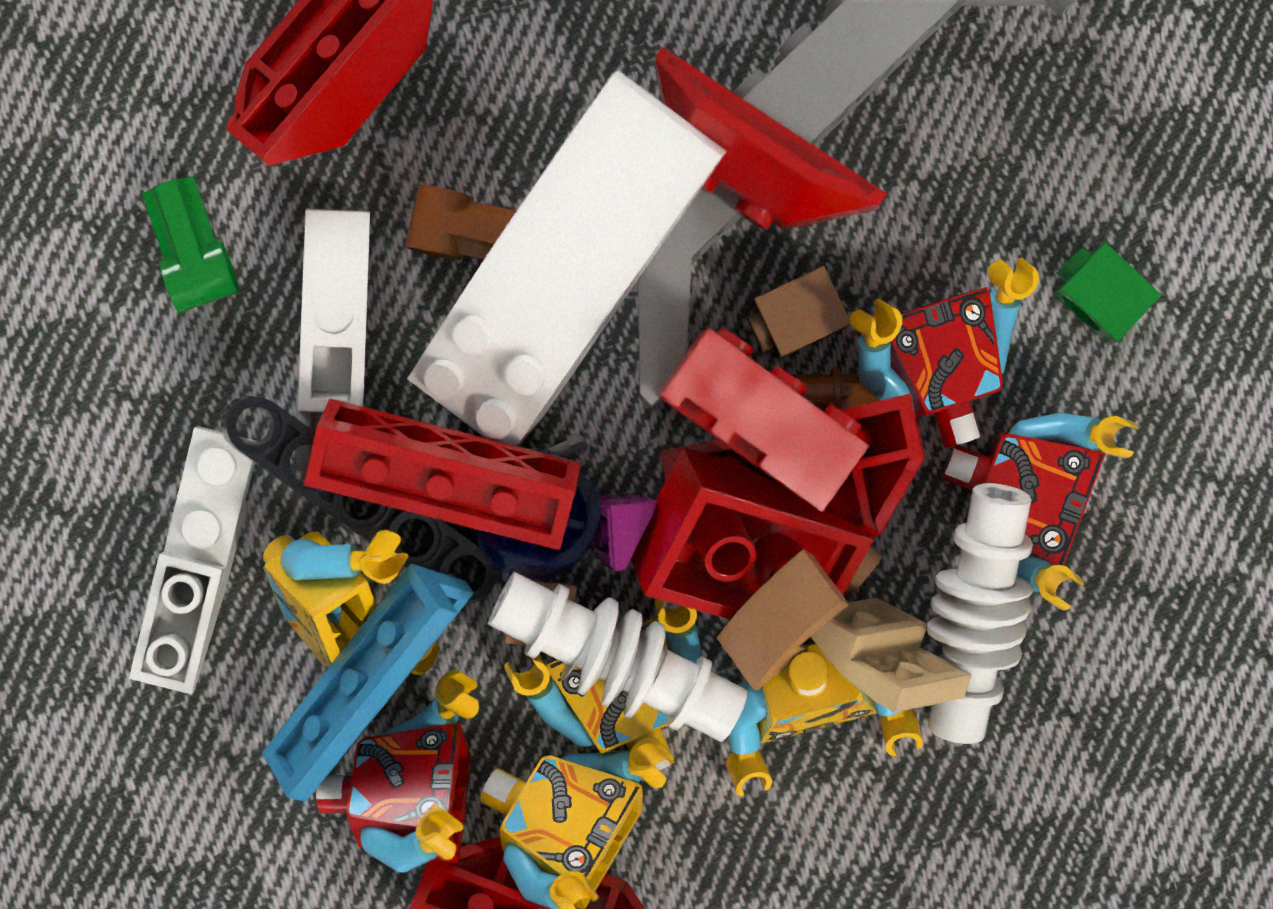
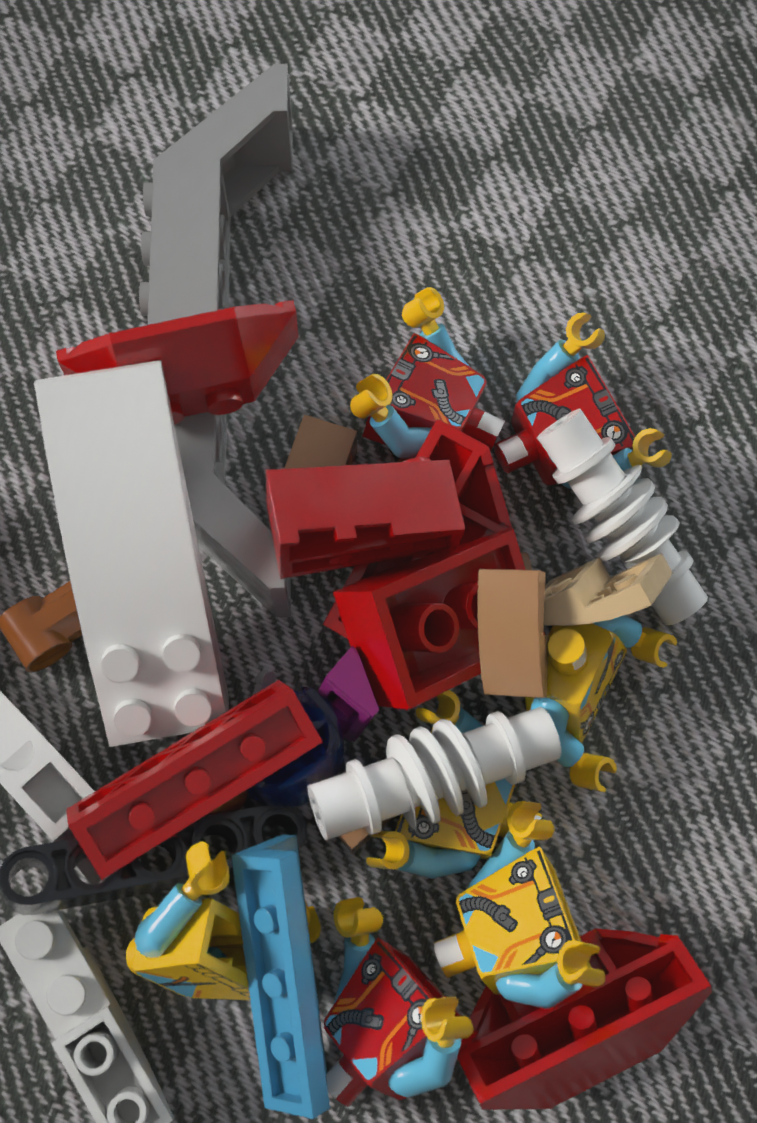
camera: 50 degrees left, 15 degrees down
(1104, 292) = (484, 277): green brick -> none

